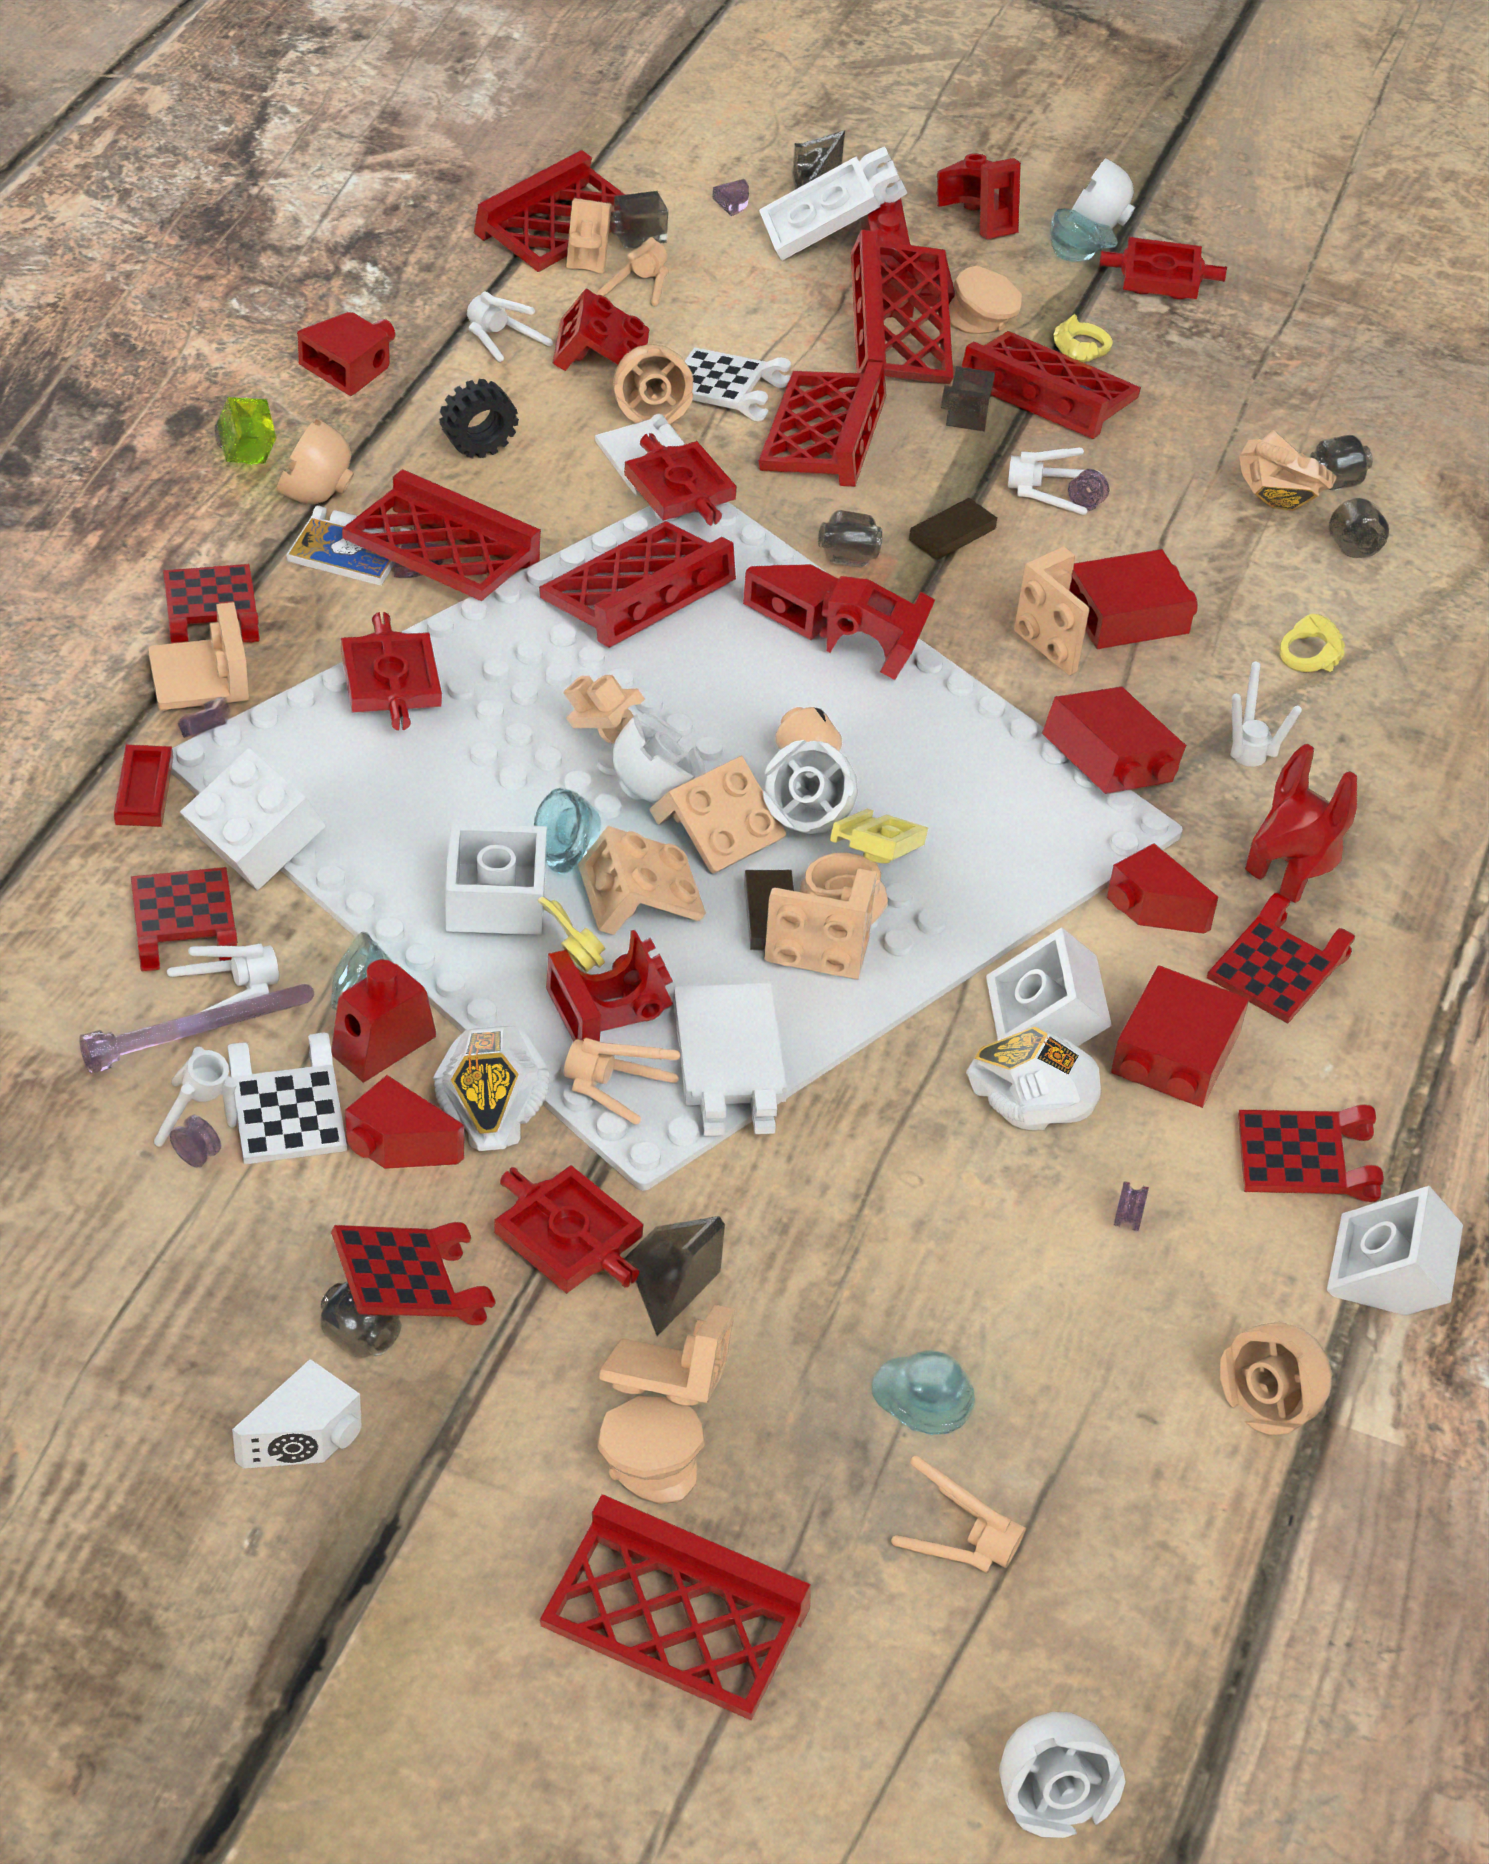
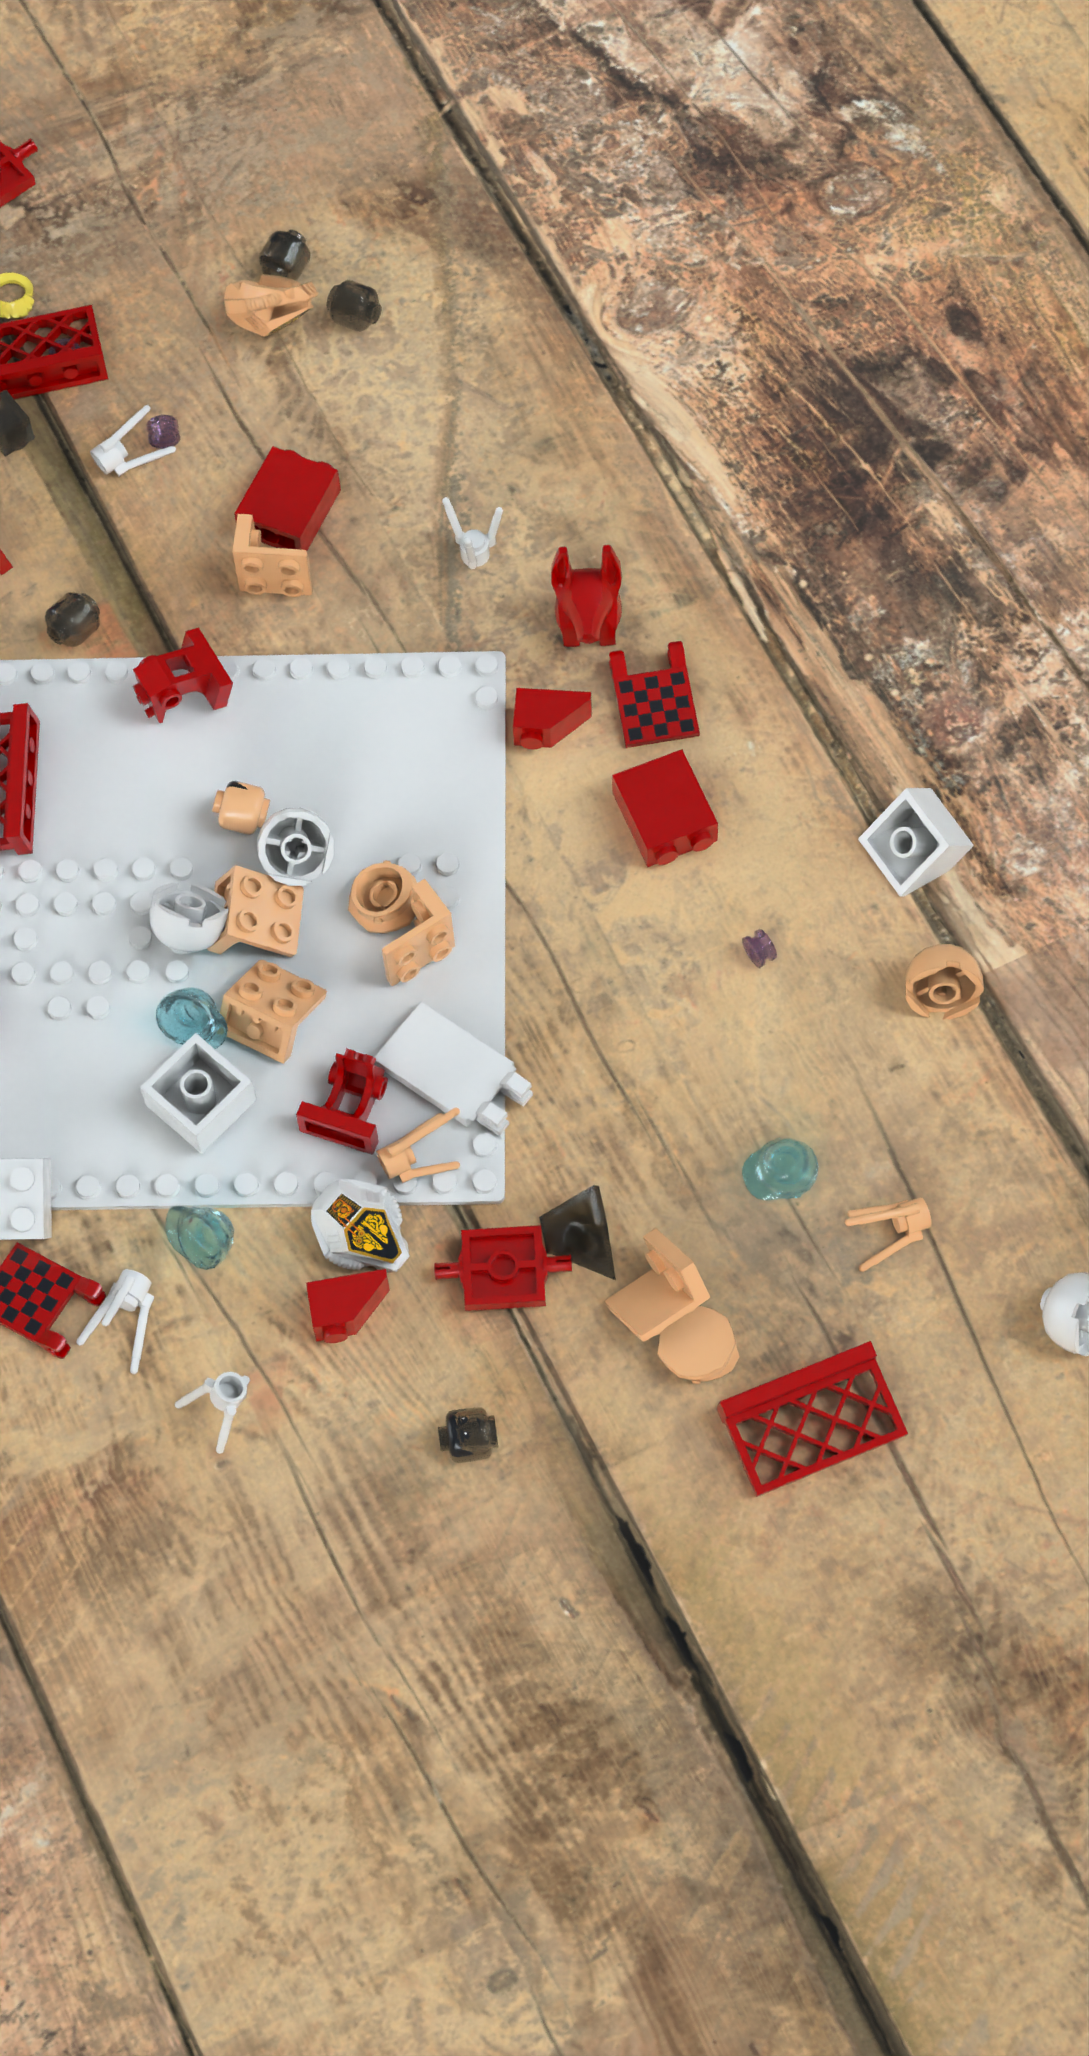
camera: 40 degrees left, 20 degrees up
(103, 1049) = (119, 1431): clear purple piece -> none
(195, 1141) = (248, 1430): bush -> none
(288, 1110) = (264, 1350): white flag -> none
(299, 1421) = (519, 1520): white slope -> none
(381, 1020) = (252, 1246): red torso -> none
(405, 1273) = (464, 1389): red flag -> none
(581, 946) = (304, 1090): light yellow plate -> none
(601, 705) = (105, 909): light nougat hips -> none
(757, 892) = (354, 948): dark brown tile -> none
(790, 595) = (102, 703): red slope -> none
(881, 837) = (365, 838): light yellow plate -> none
(953, 528) = (115, 544): dark brown tile -> none
(1048, 1078) = (627, 917): white helmet -> none
(1050, 988) = (570, 854): white slope -> none
(1113, 739) = (407, 628): red brick -> none
(1305, 1152) = (796, 821): red flag -> none
(1314, 626) = (413, 417): light yellow piece -> none

